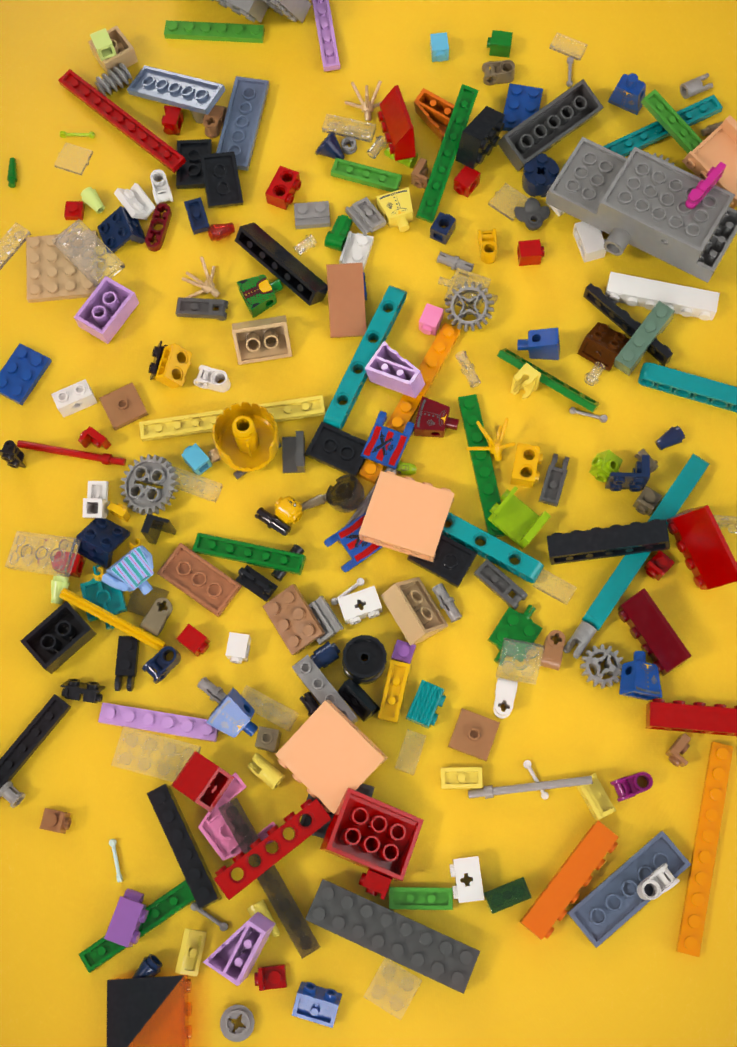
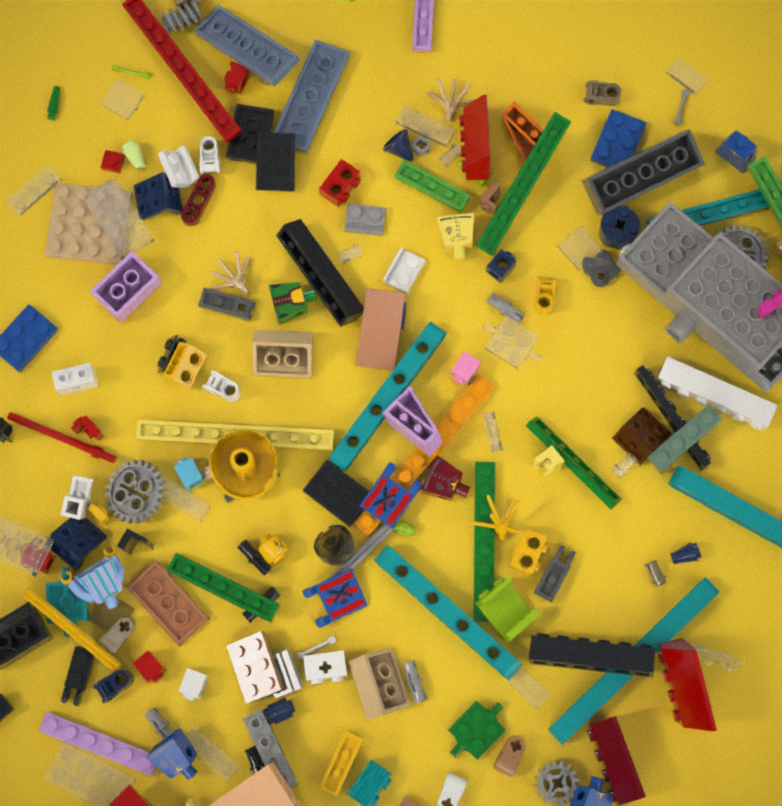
camera: 10 degrees right, 5 degrees up
(57, 585) = (22, 582): yellowish green cone -> none
(74, 688) = (37, 697): black hinge -> none
(123, 406) = (124, 397): medium nougat plate -> none
(196, 215) = (242, 196): dark blue plate -> none
(214, 121) = (280, 92): medium nougat piece -> none
(220, 231) = (263, 219): clear red cone -> none
(256, 583) = (225, 619): black hinge -> none
(268, 739) = (204, 786): dark tan brick -> none
(294, 453) = (291, 487): dark grey panel -> none
(316, 501) = (301, 544): dark tan animal -> none
(337, 237) = (386, 253): green piece -> none
(358, 699) = (303, 764): black panel -> none
(363, 648) = (313, 737): black wheel -> none
(365, 216) = (421, 235): light grey plate -> none
(403, 652) = (359, 724): medium lavender plate -> none
(406, 515) = (392, 582): light nougat panel -> none
(439, 47) = (544, 50): medium azure brick -> none
(450, 561) = (420, 632): black plate -> none
(466, 181) = (538, 216): red brick -> none
(475, 300) = (504, 357): light grey gear -> none
(480, 137) = (563, 173): black brick -> none
(500, 43) = (612, 59): green brick -> none
(500, 584) = (473, 673): dark grey plate -> none
(519, 661) = (474, 760): clear plate -> none
(530, 252) = (588, 314): red brick -> none
(542, 344) = (582, 425): blue torso -> none
(581, 636) = (545, 746): light grey hinge -> none
(589, 241) = (654, 315): white brick -> none
(603, 418) = (622, 516): light grey hinge -> none
(604, 464) = (610, 572): lime brick -> none
(633, 481) = (638, 596): dark blue bracket -> none
(647, 501) = (645, 617): dark tan bracket -> none
(658, 565) = (640, 689): red bracket -> none

